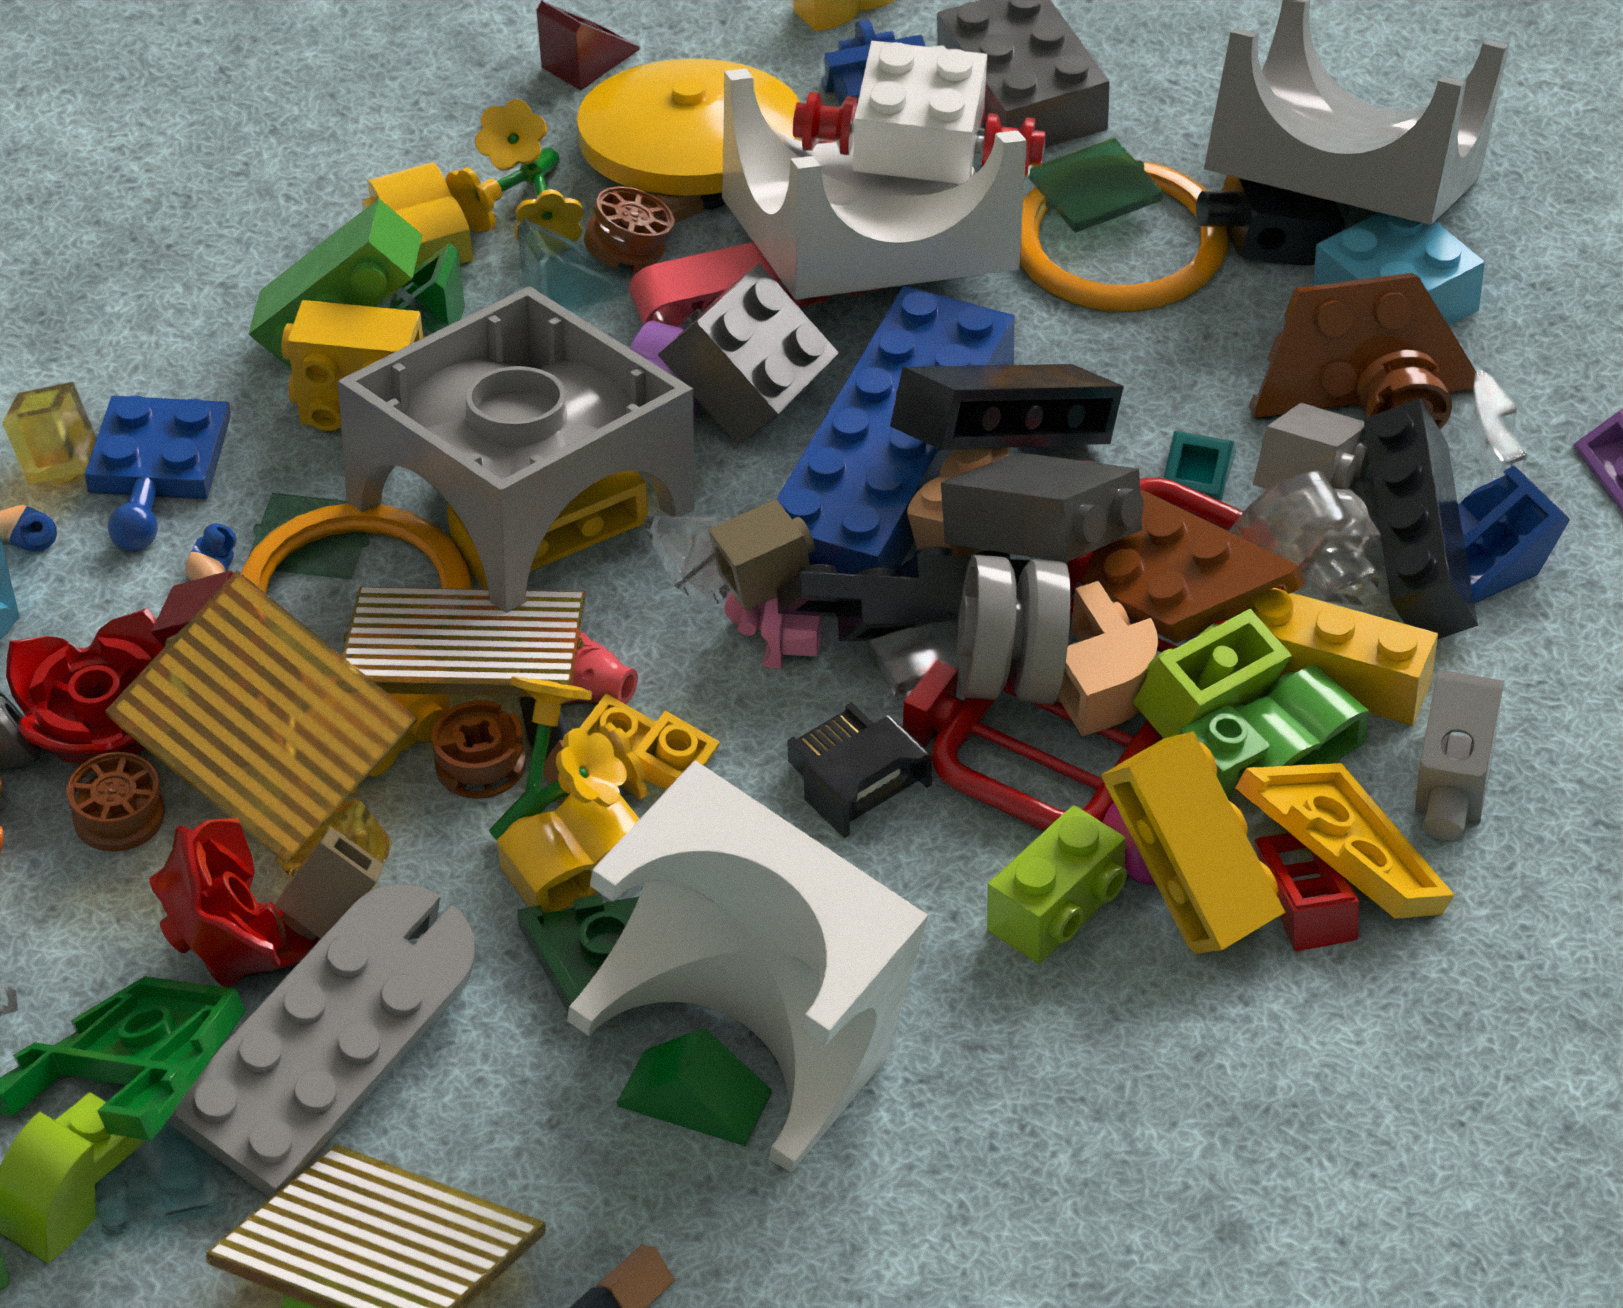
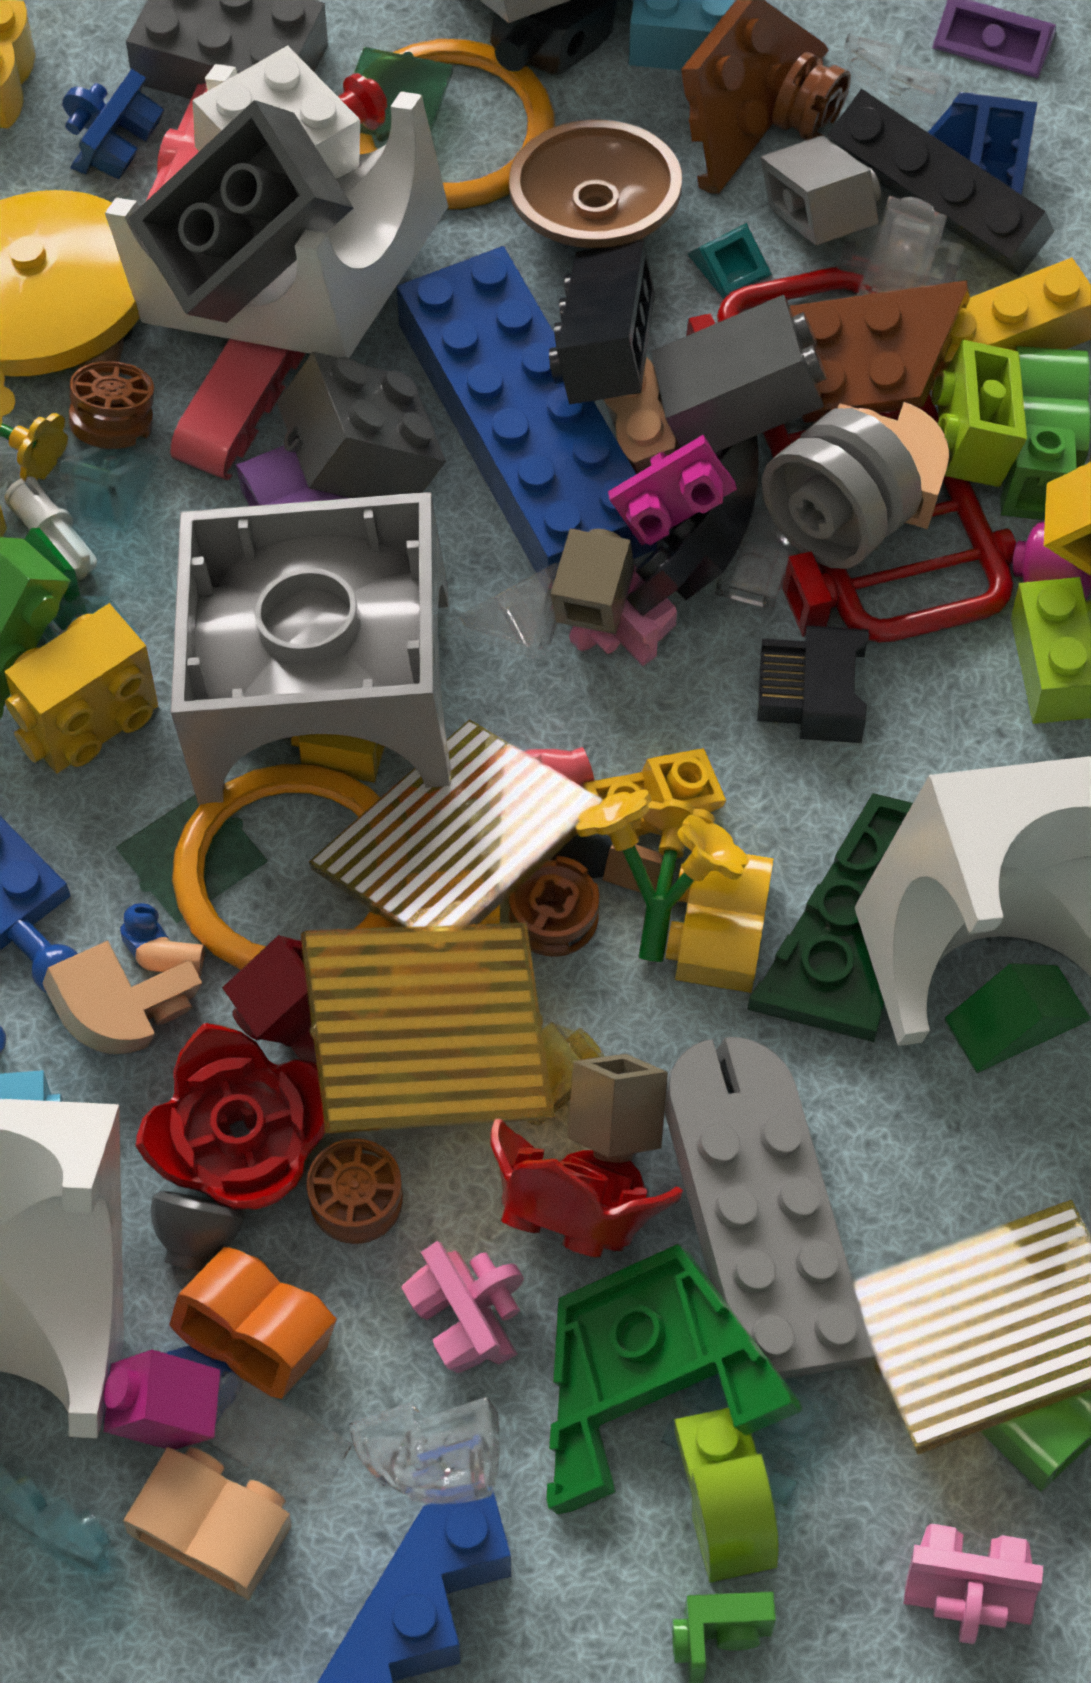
camera: 50 degrees left, 15 degrees up
(86, 921) = (450, 1282): none -> bright pink hips
(122, 558) = (103, 1007): none -> light nougat brick
(494, 273) = (40, 512): none -> white axle
(806, 105) = (238, 211): none -> dark grey brick
(882, 535) = (672, 490): none -> dark pink hips
(1148, 331) = (595, 183): none -> medium nougat dish

